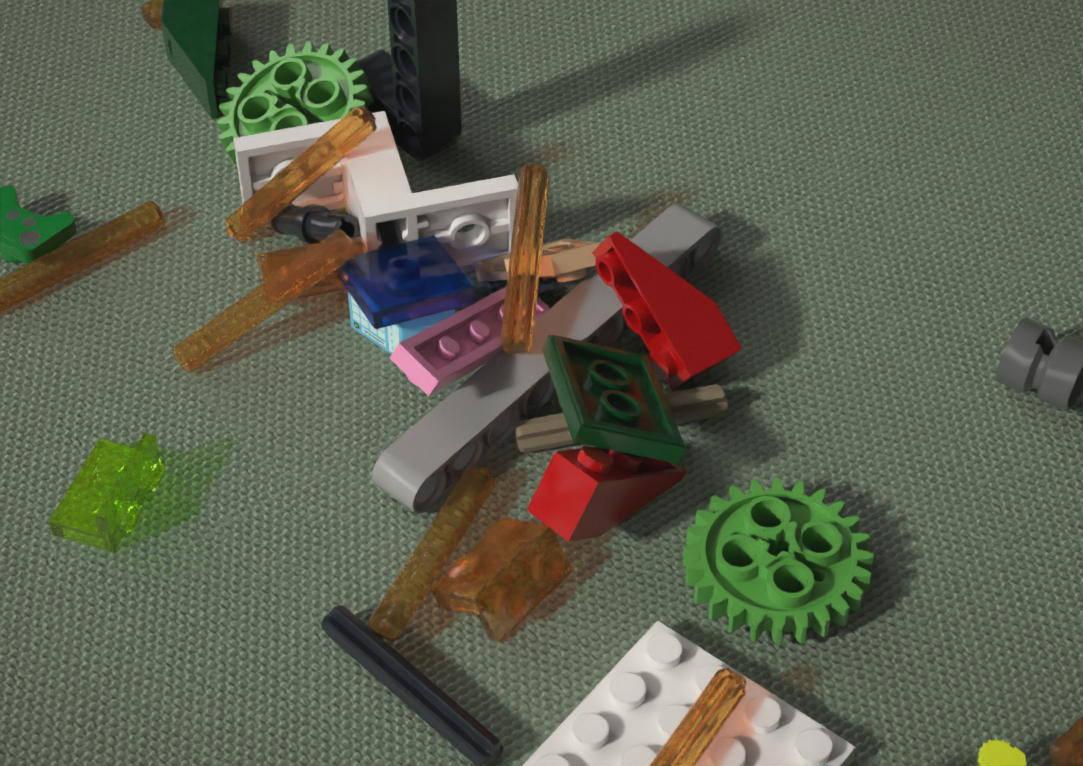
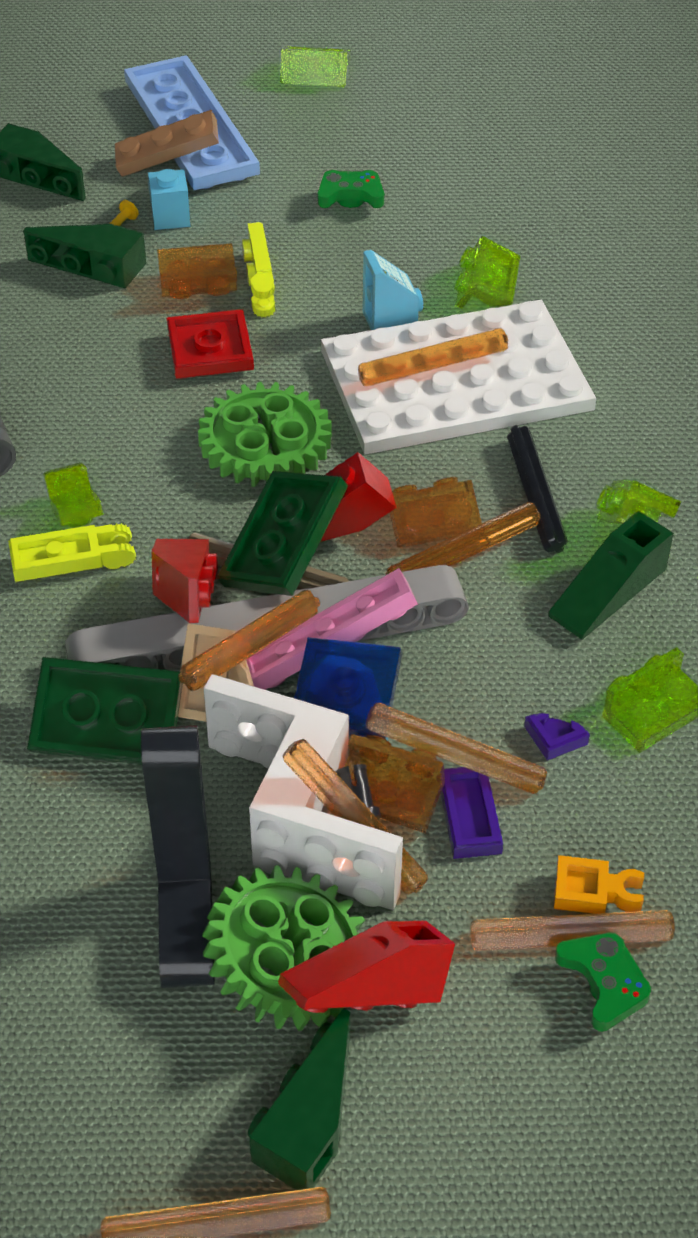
camera: 145 degrees left, 0 degrees up
(74, 288) = (588, 886): none -> light orange plate
(196, 415) = (554, 735): none -> dark purple tile
(207, 100) = (380, 966): none -> red slope
(218, 289) = (470, 814): none -> dark purple tile
(230, 597) = (614, 574): none -> dark green slope
(255, 680) = (629, 497): none -> clear neon green bracket
(621, 194) = (100, 709): none -> dark green tile
(826, 321) = (71, 551): none -> neon yellow hinge
(881, 366) = (72, 496): none -> clear neon green bracket
(979, 657) = (209, 343): none -> red plate

